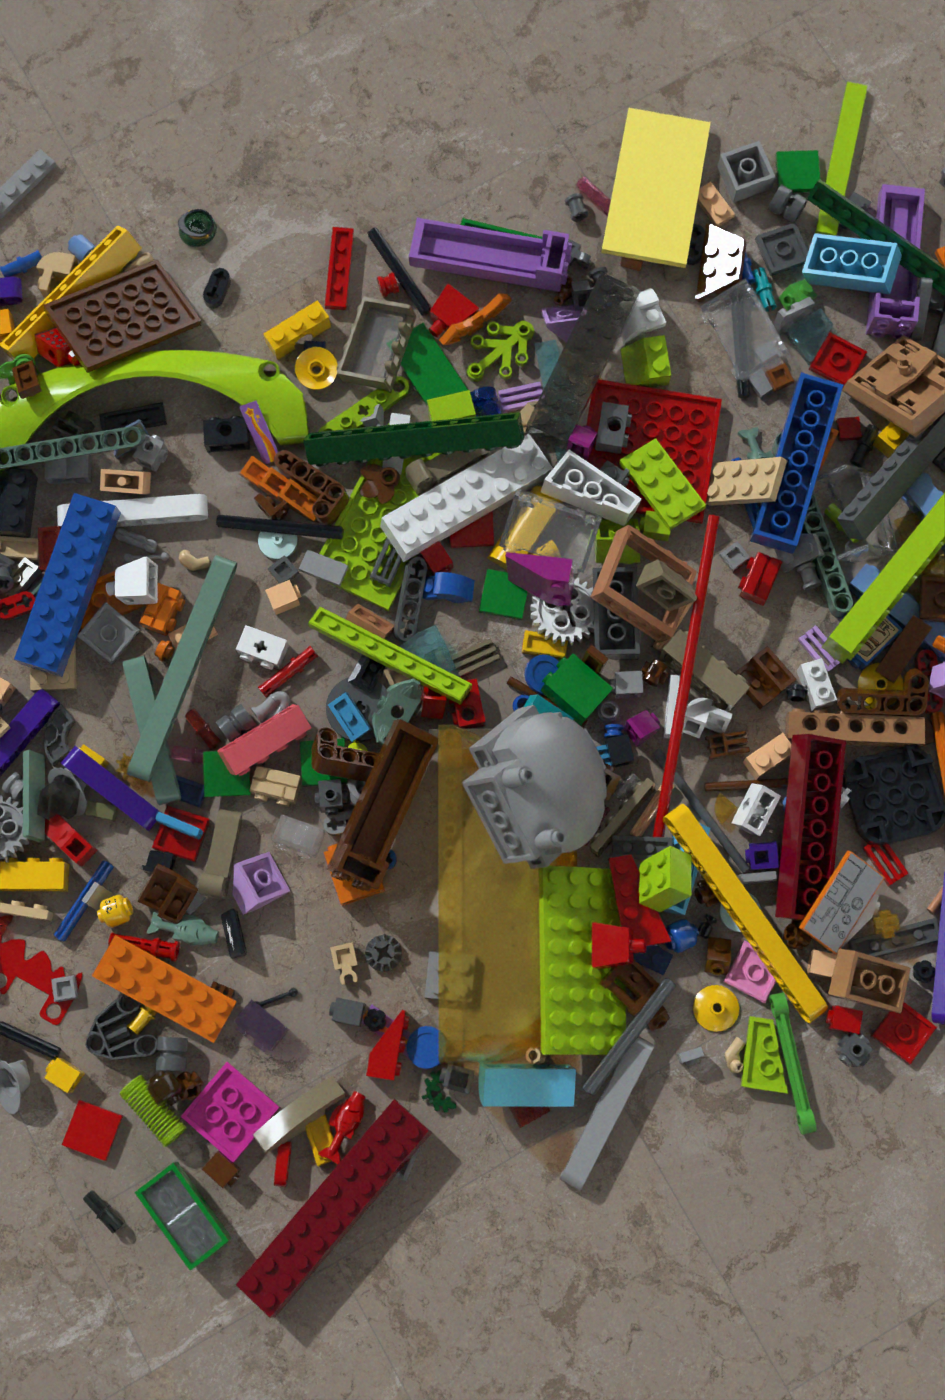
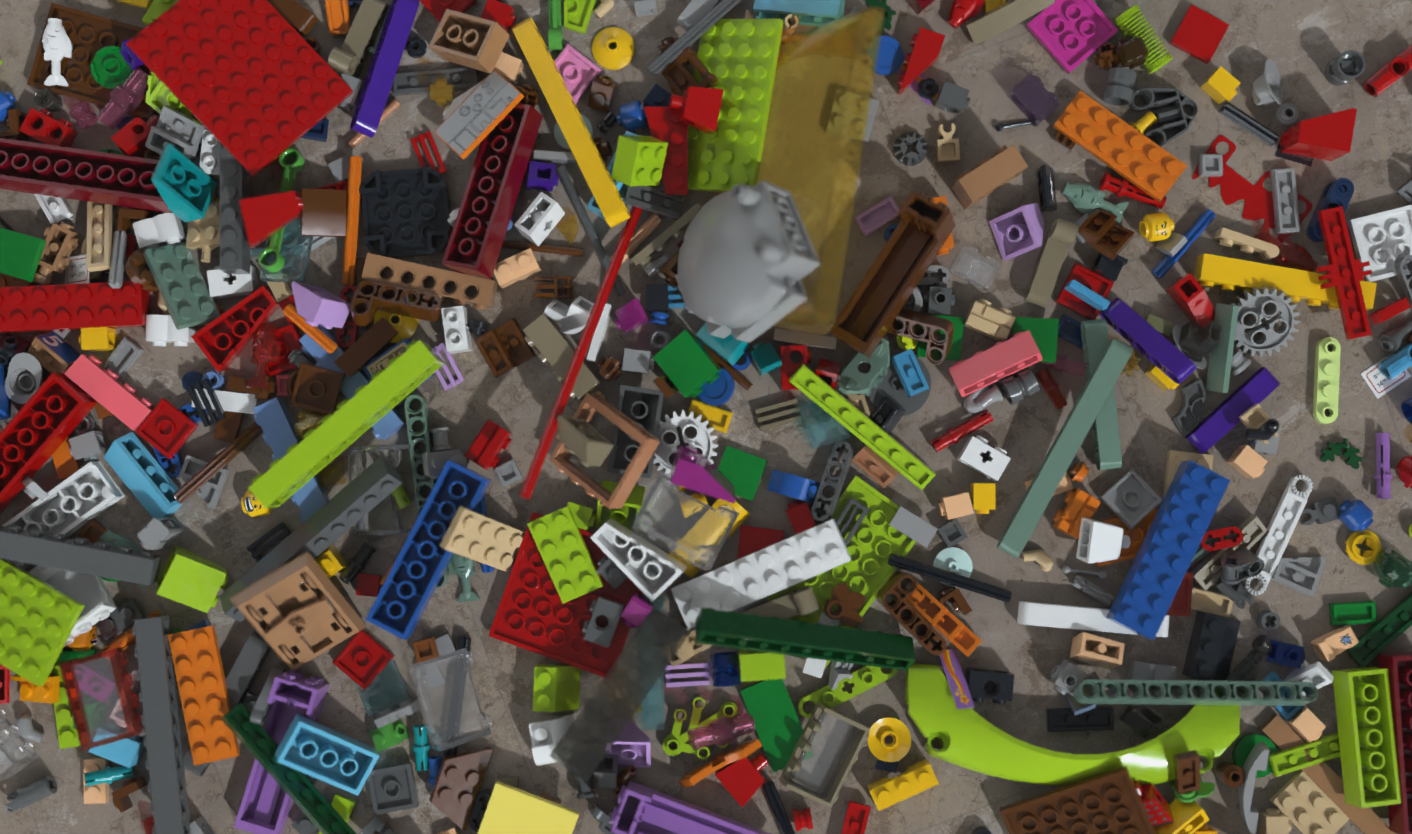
camera: 170 degrees left, 10 degrees up
(258, 609) = (983, 497): none -> yellow brick
(298, 931) = (988, 175): none -> medium nougat brick
(406, 876) = (877, 216): none -> lavender tile
(479, 347) = (721, 731): none -> clear pink piece
(497, 705) = (765, 358): none -> teal slope

